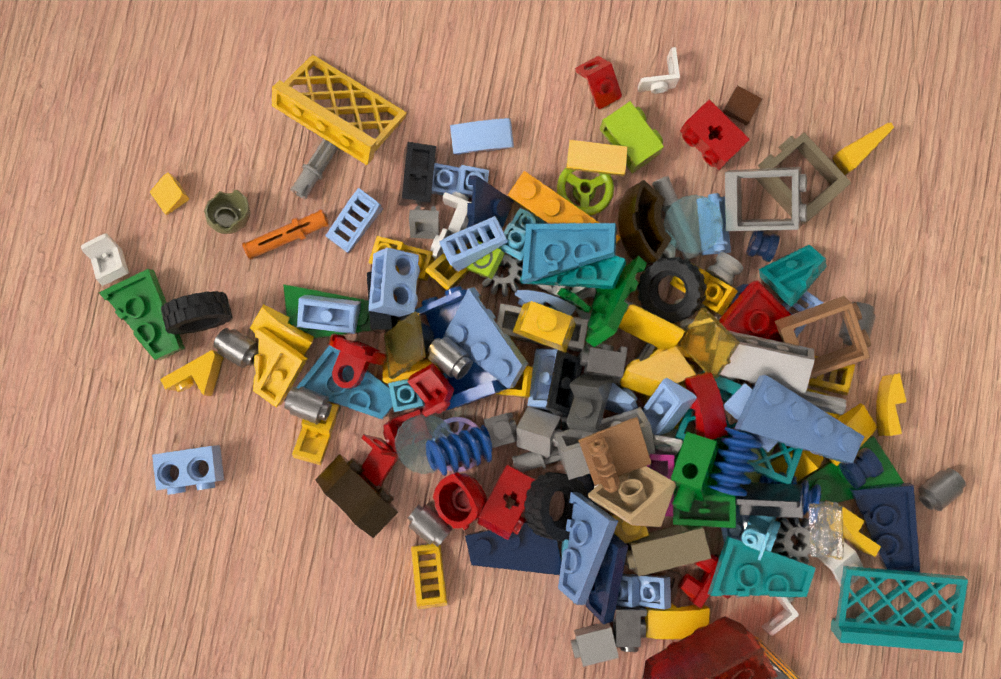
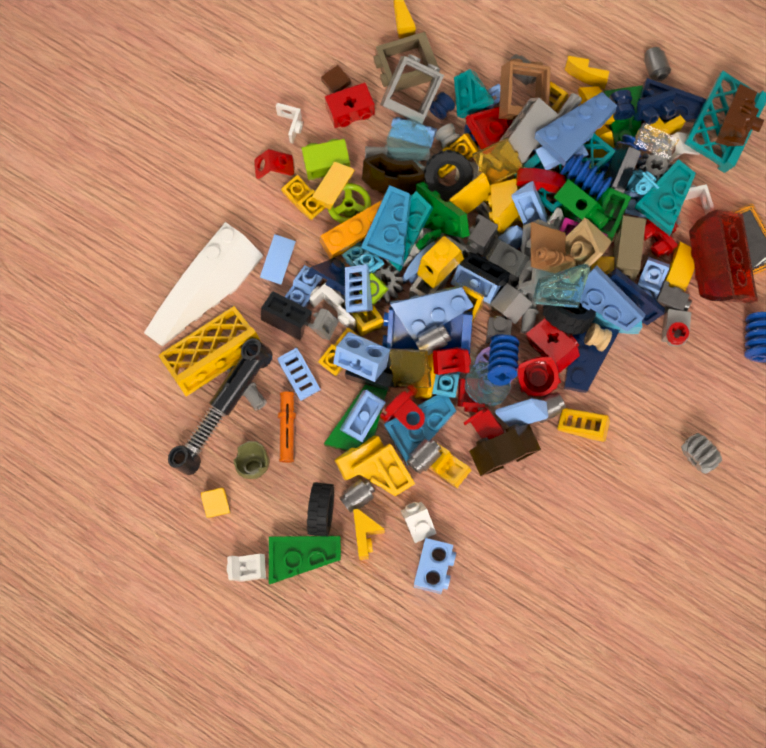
camera: 65 degrees left, 10 degrees down
(235, 428) = (418, 521): none -> white bracket
(338, 158) = (253, 358): none -> black piece
(407, 501) = (523, 412): none -> light blue slope
(423, 68) = (209, 278): none -> white wedge
(537, 554) = (598, 337): none -> tan wheel
(571, 489) = (562, 288): none -> clear light blue wing
(573, 656) = (670, 336): none -> red bush
(574, 127) = (301, 197): none -> yellow slope
(880, 508) = (655, 103): none -> dark blue hips
(907, 629) = (740, 118): none -> reddish brown brick

